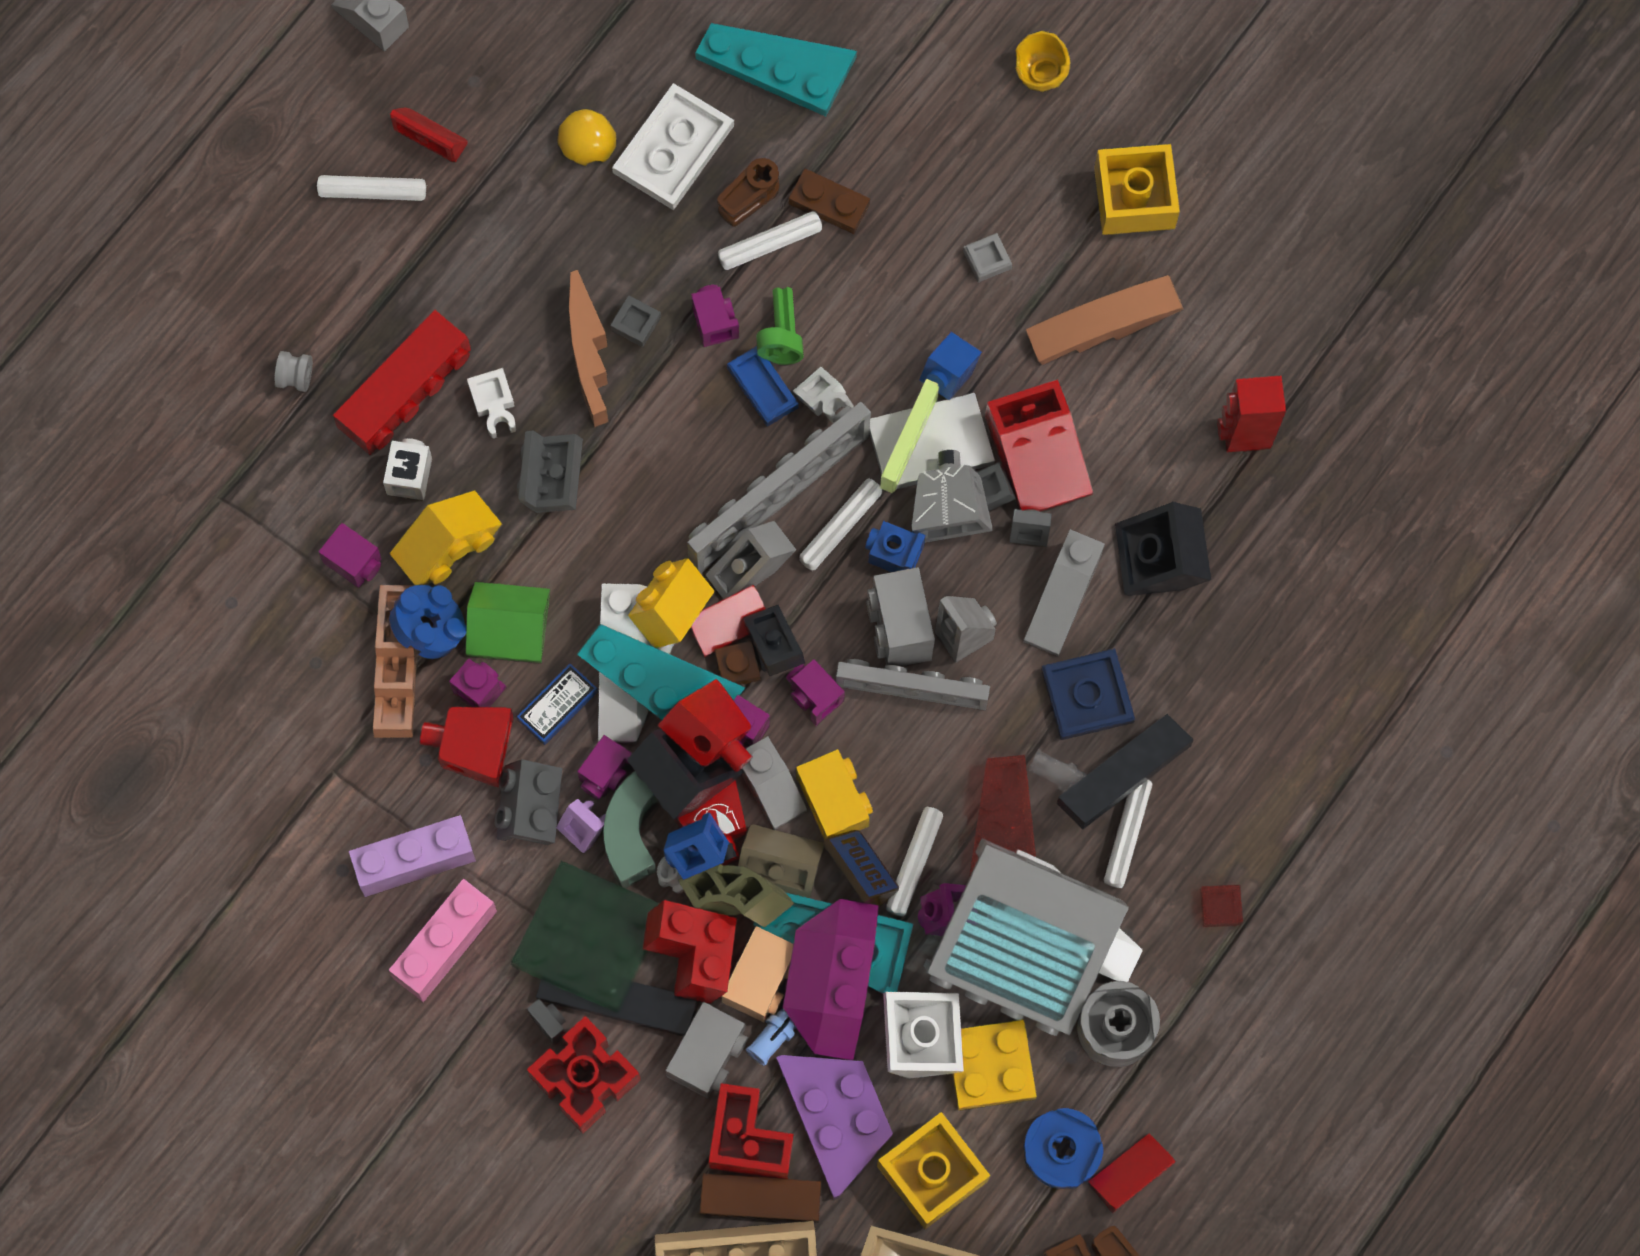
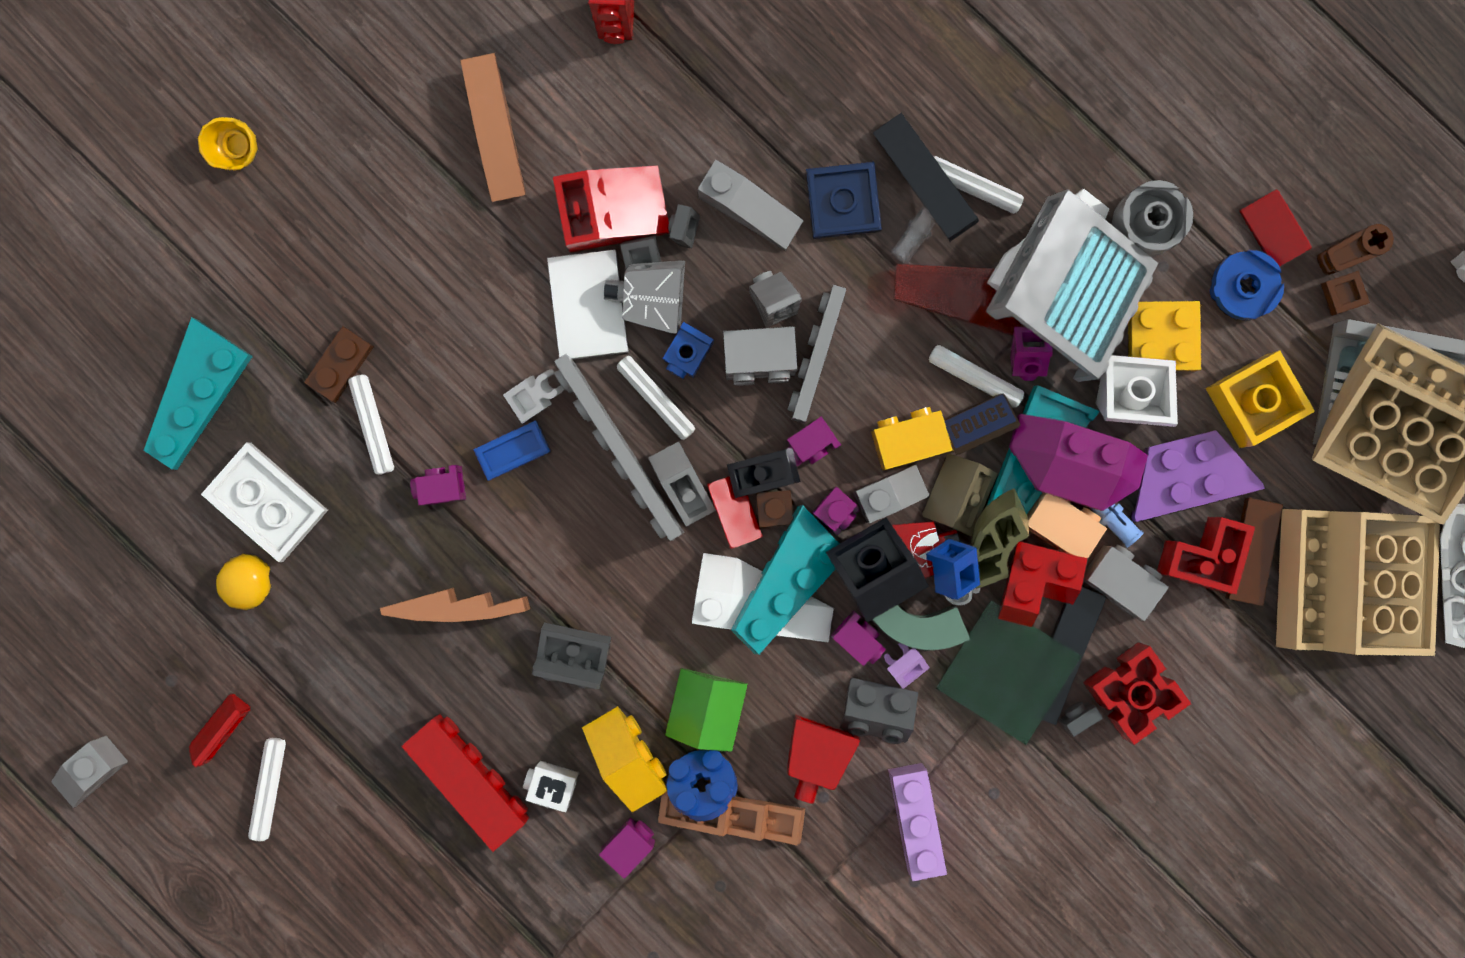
camera: 75 degrees left, 15 degrees up
(293, 371) = (441, 881): light grey wheel -> none
(443, 940) = (997, 802): bright pink brick -> none
(477, 684) = (766, 745): magenta brick -> none
(492, 397) = (490, 700): white plate -> none
(557, 704) = (790, 674): tile -> none
(635, 321) = (434, 559): dark grey plate -> none
(670, 602) = (718, 562): yellow brick -> none
(709, 727) = (849, 543): red torso -> none
(747, 195) = (324, 440): reddish brown piece -> none
(781, 343) = (477, 426): bright green piece -> none
(909, 436) = (585, 321): yellowish green tile -> none
(951, 365) = (520, 275): blue brick -> none
(987, 257) = (415, 226): light grey tile -> none
(1136, 189) = (369, 75): yellow brick -> none
(1163, 550) = (722, 110): black slope -> none
(1221, 905) = (1050, 114): clear red tile -> none

